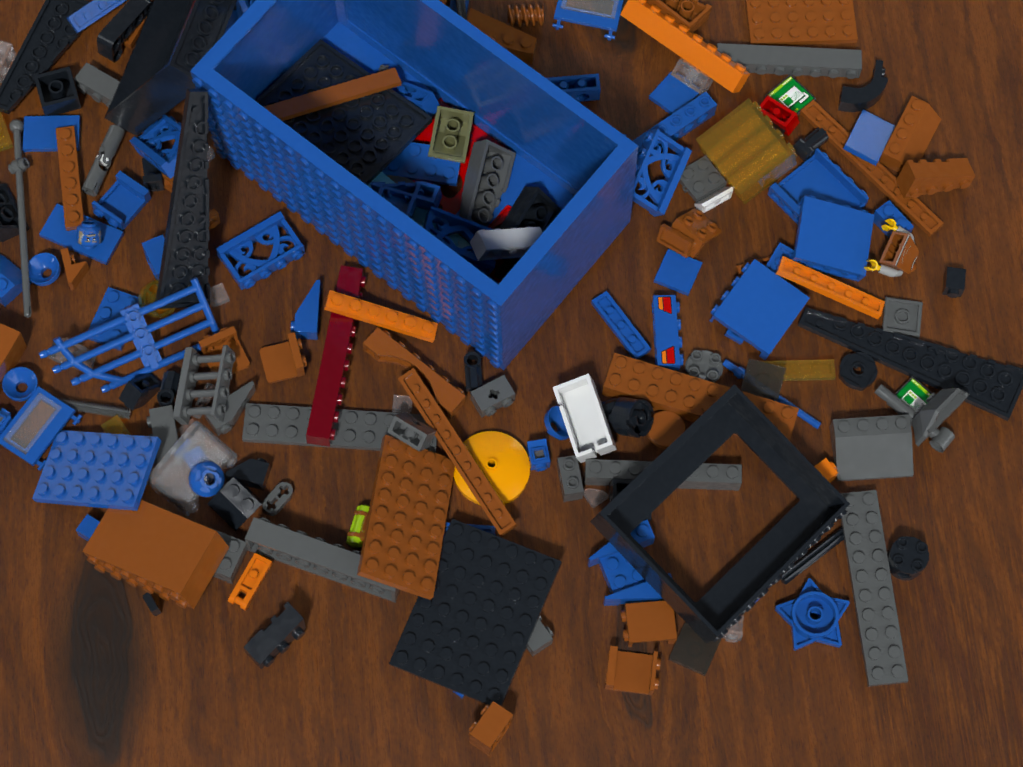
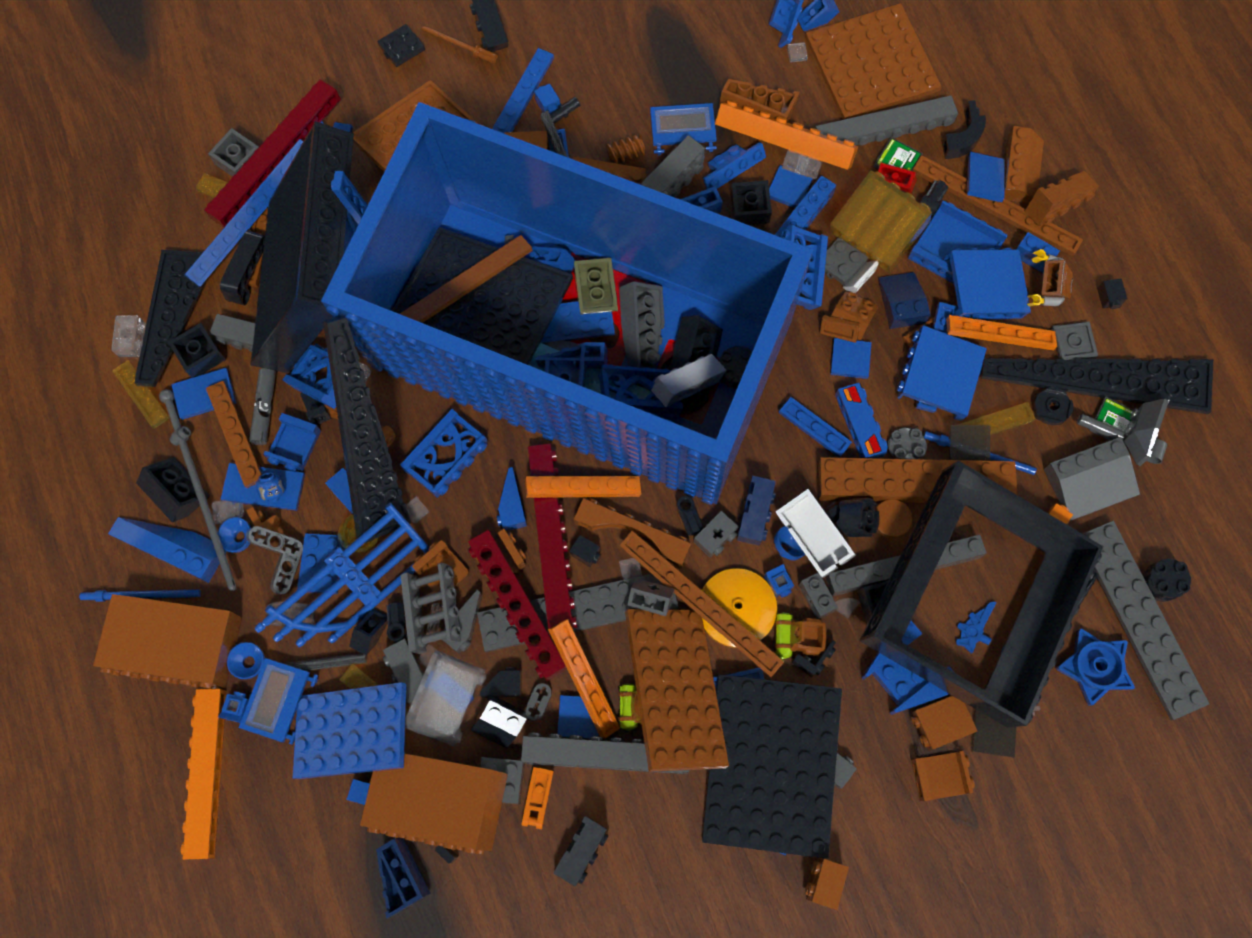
camera: 10 degrees left, 5 degrees up
(41, 244) = (226, 510): none -> clear plate
(84, 300) = (285, 555): none -> dark grey beam
(103, 612) = (400, 877): none -> dark blue wedge
(196, 479) = (453, 705): blue piece -> none
(273, 341) = (486, 543): none -> dark red brick
(312, 519) = (575, 718): none -> blue tile
(325, 485) = (584, 678): none -> orange plate
(364, 376) = (585, 551): none -> black brick
(537, 535) = (805, 663): none -> black bracket
(538, 385) = (756, 511): none -> dark blue wedge
(540, 508) = (799, 635): none -> dark orange piece
(563, 49) = (677, 168): none -> dark grey piece
(625, 57) = (732, 164): none -> blue bracket
(629, 99) = (751, 202): none -> black brick
(707, 553) = (973, 629): none -> blue piece
(747, 232) = (904, 300): none -> dark blue slope

